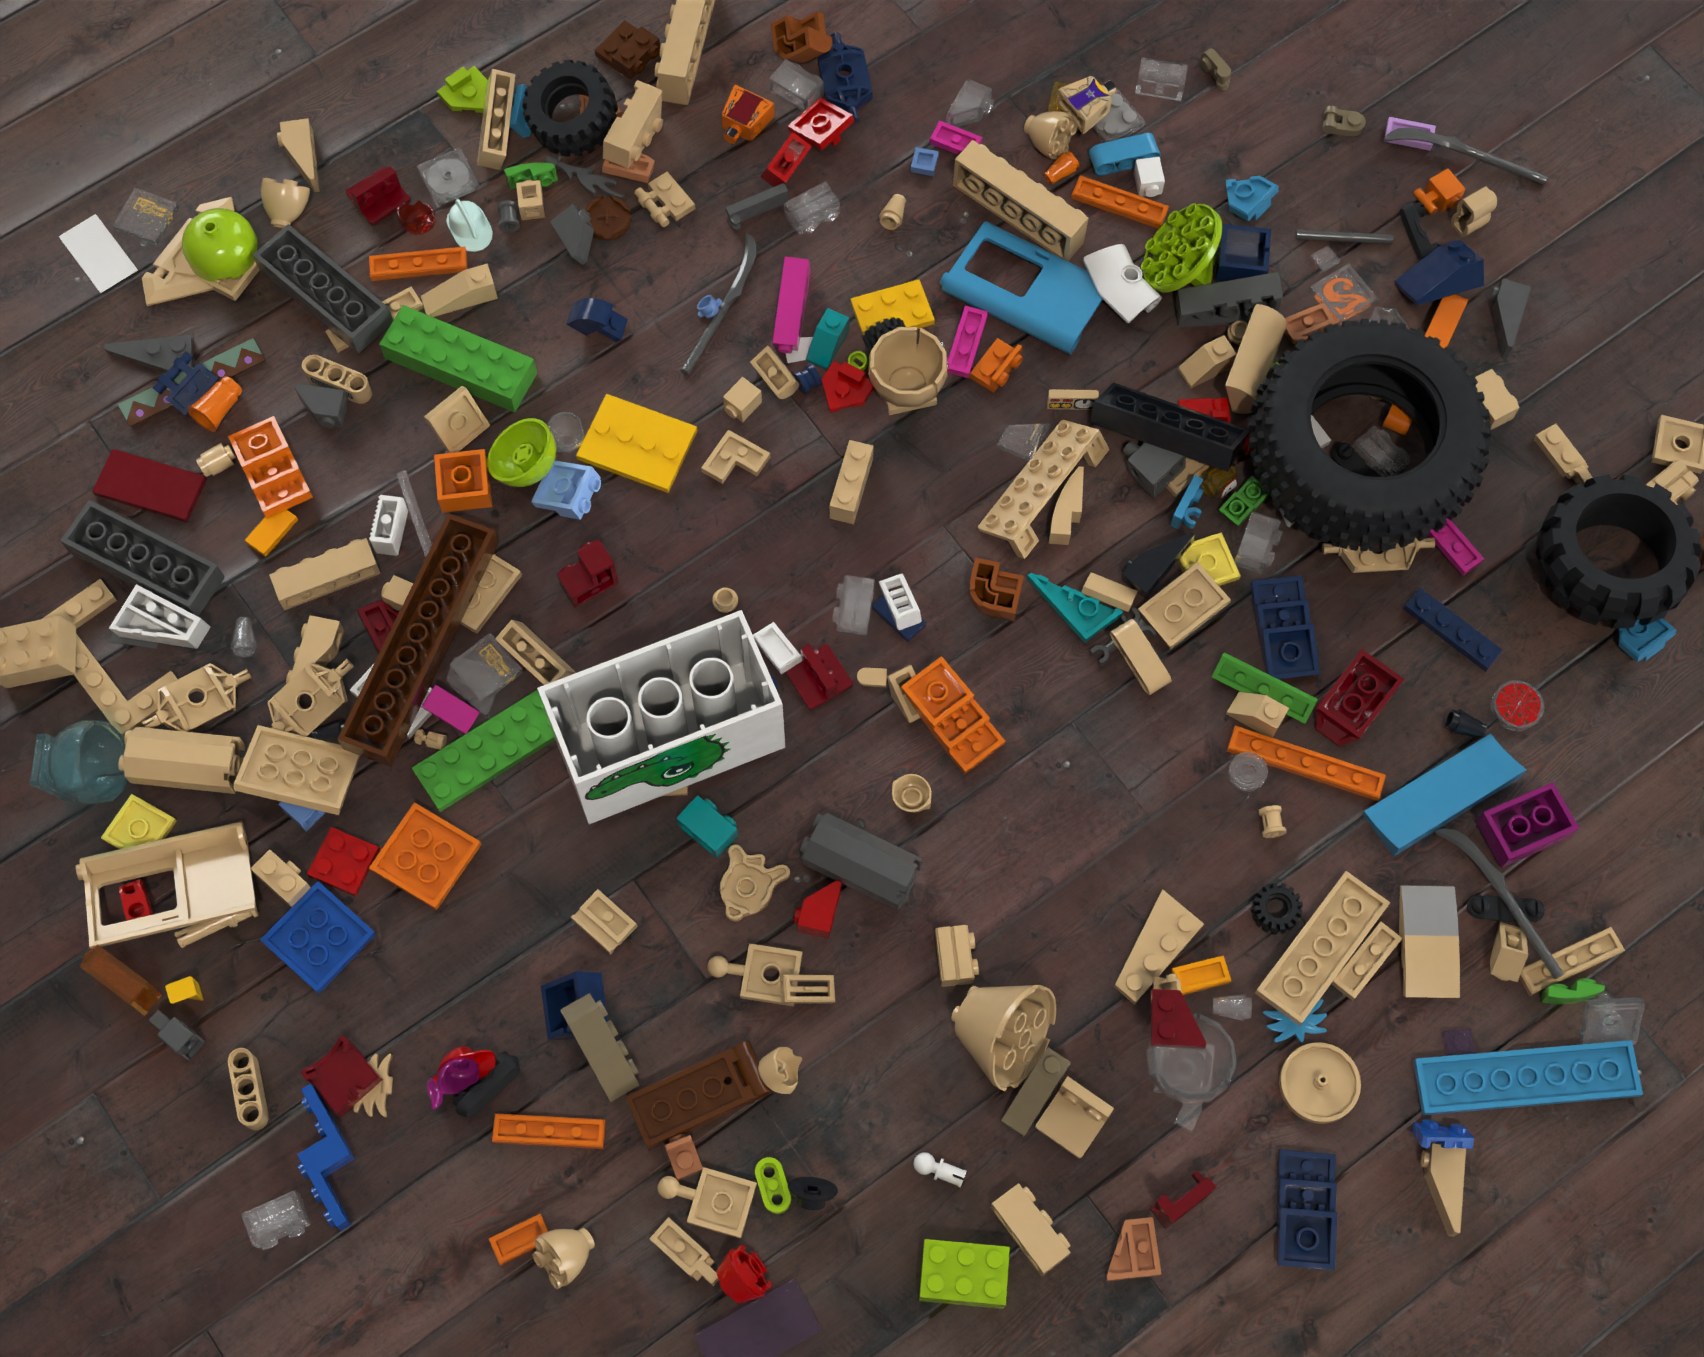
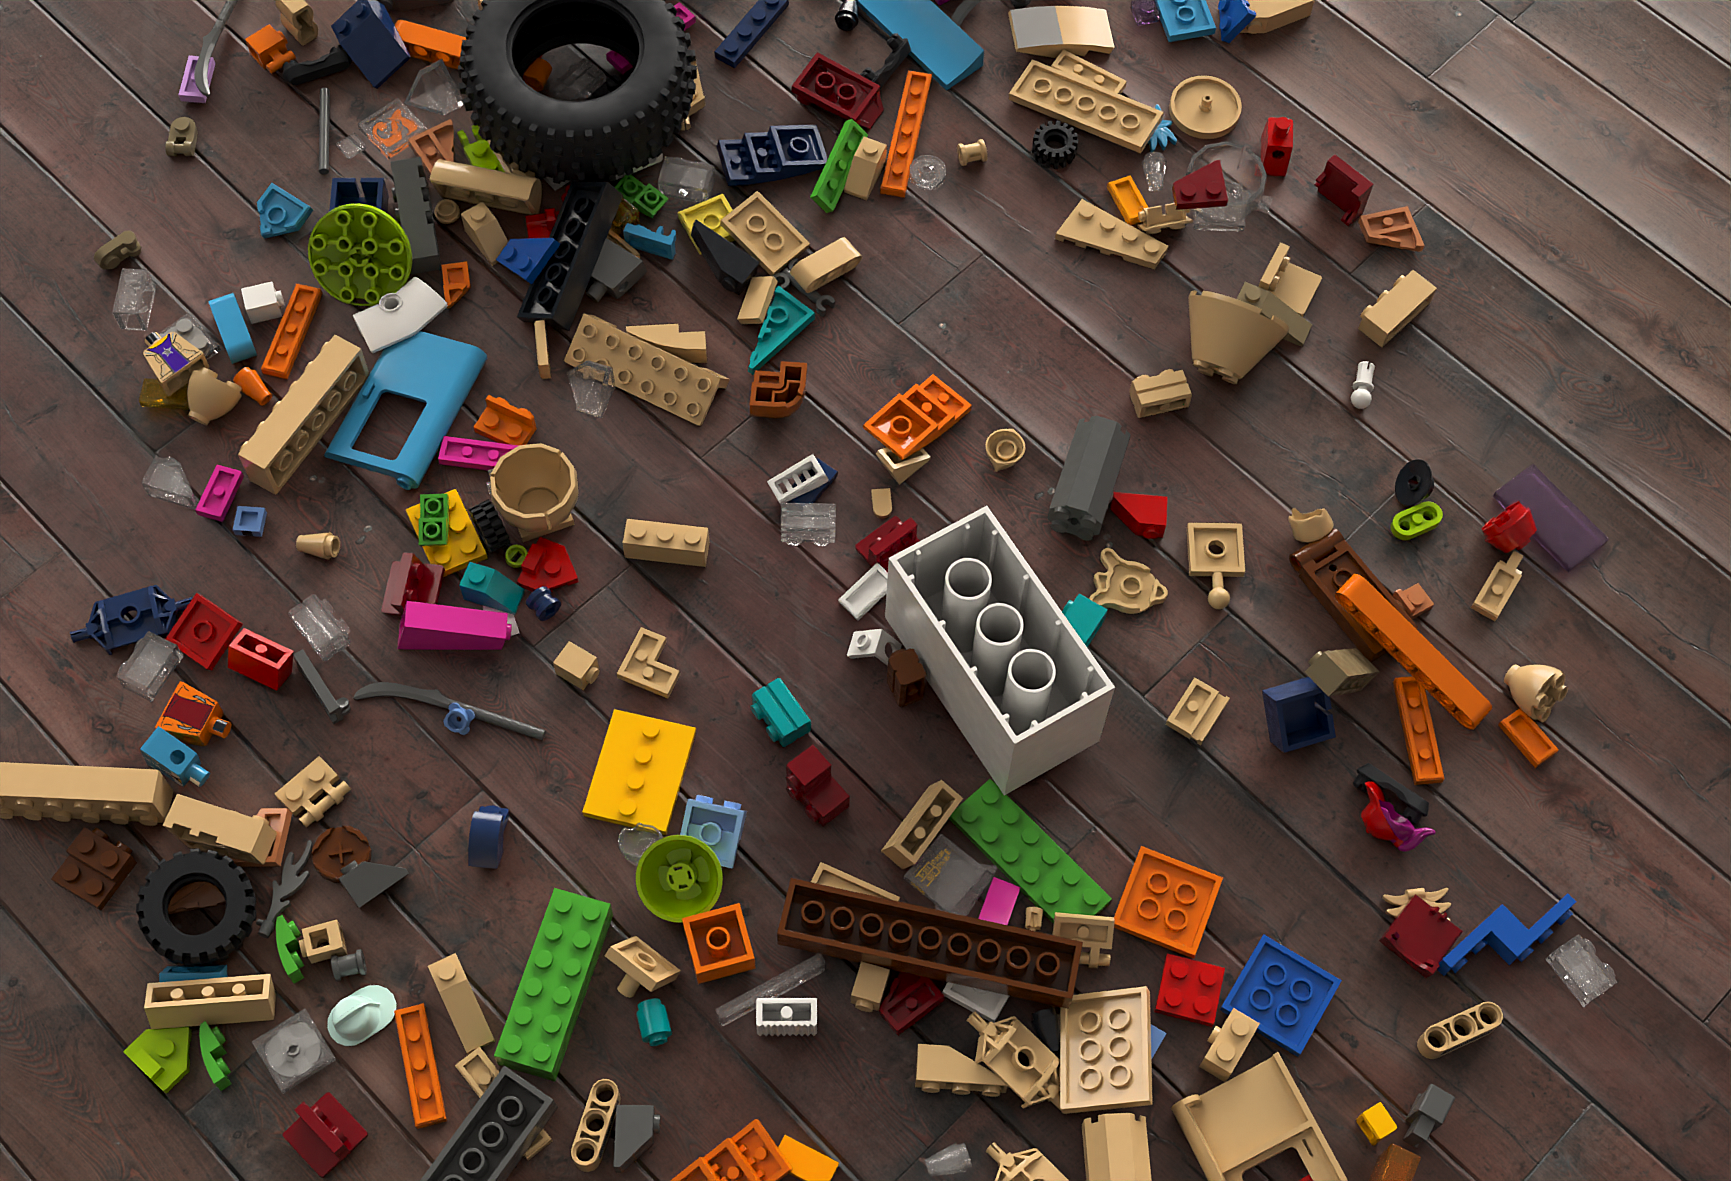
camera: 100 degrees left, 5 degrees down
(324, 573) = (855, 1081): tan brick -> none
(404, 774) = (1091, 930): none -> tan plate
(410, 429) = (653, 1022): none -> teal brick
(416, 218) = (358, 1073): clear red hair -> none
(462, 120) = (212, 1052): none -> bright green slope
(617, 1131) = (1413, 651): none -> orange beam
(667, 557) = (780, 712): none -> teal brick
(706, 98) = (166, 753): none -> dark azure torso
(718, 1203) = (1444, 564): tan plate -> none
(725, 600) = (819, 651): tan plate -> none
(775, 373) = (538, 637): tan brick -> none
(786, 989) = (1219, 513): tan tile -> none
(801, 39) = (85, 664): dark orange brick -> none
(836, 277) = (411, 582): none -> dark red bracket
(899, 297) = (433, 519): none -> bright green slope
(964, 1274) = (1452, 354): lime brick -> none
(1157, 336) = (456, 282): none -> orange slope
(1173, 390) = (527, 256): none -> blue wing
(1252, 1143) = (1277, 136): none -> red torso
(1306, 1209) = (1322, 109): dark blue slope -> none
(1373, 740) = (900, 50): none -> black piece

